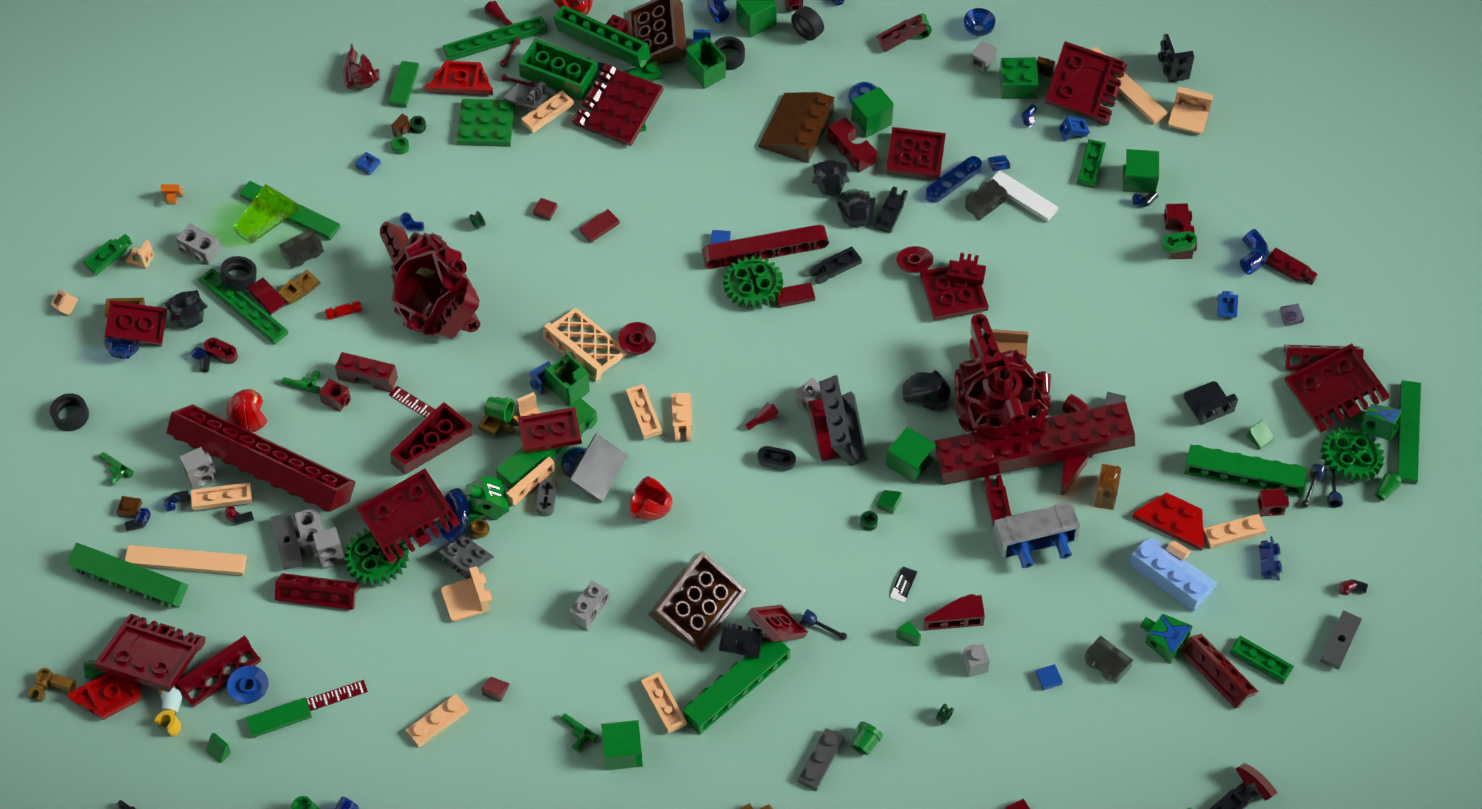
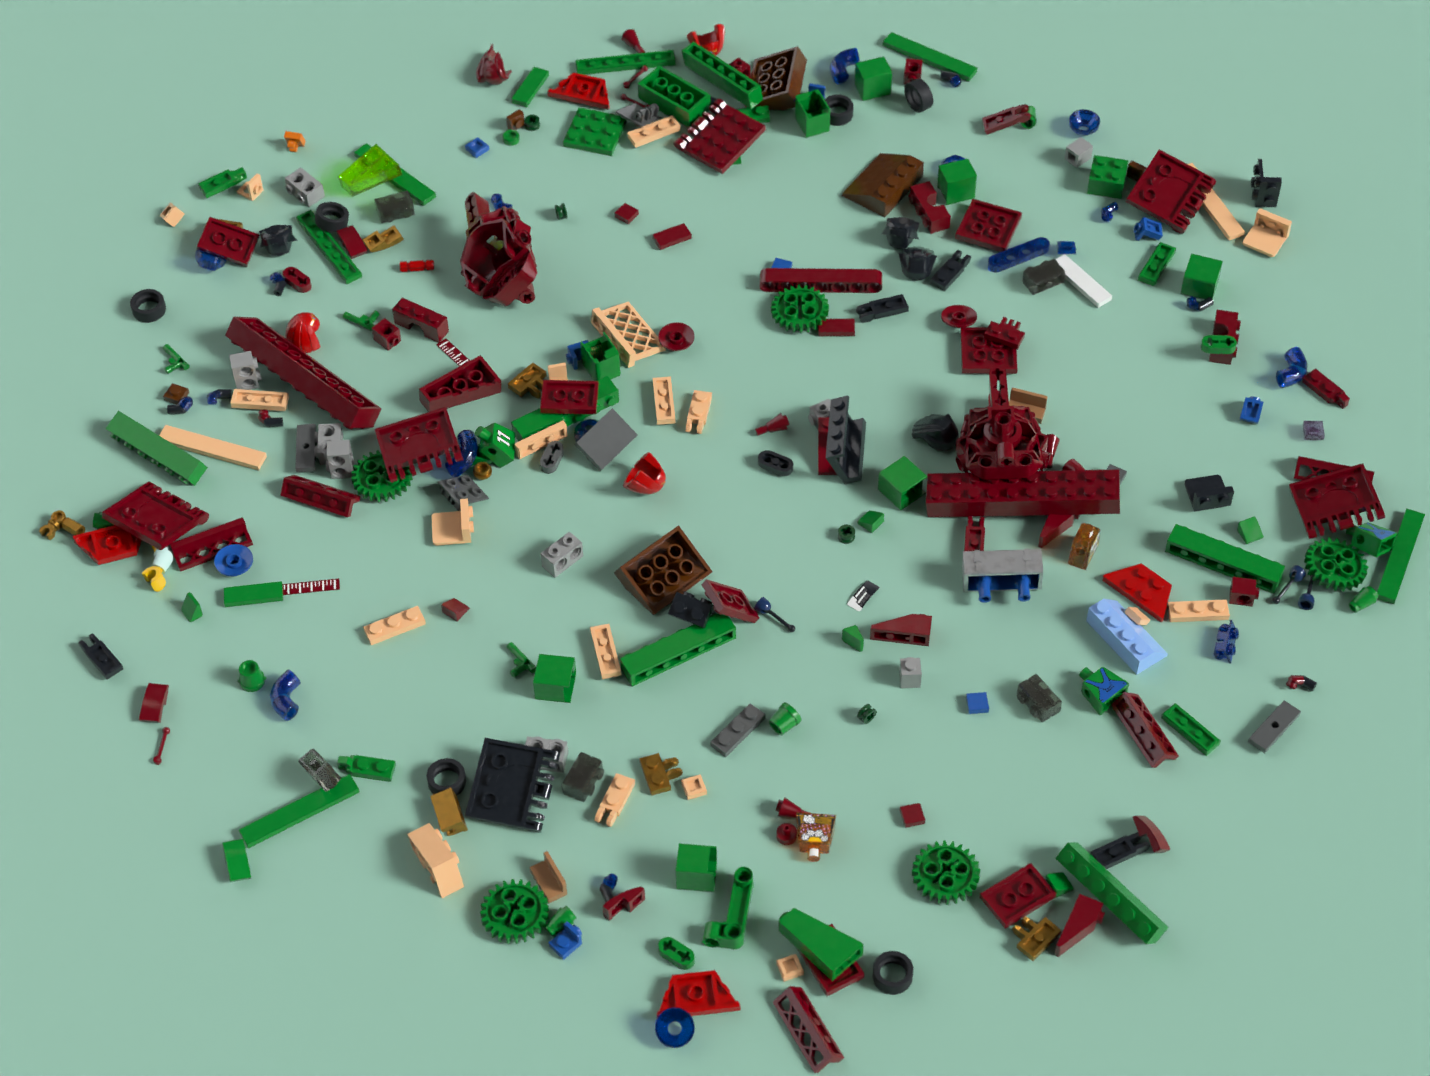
camera: 15 degrees right, 5 degrees down
(499, 408) = (530, 371): green piece -> none

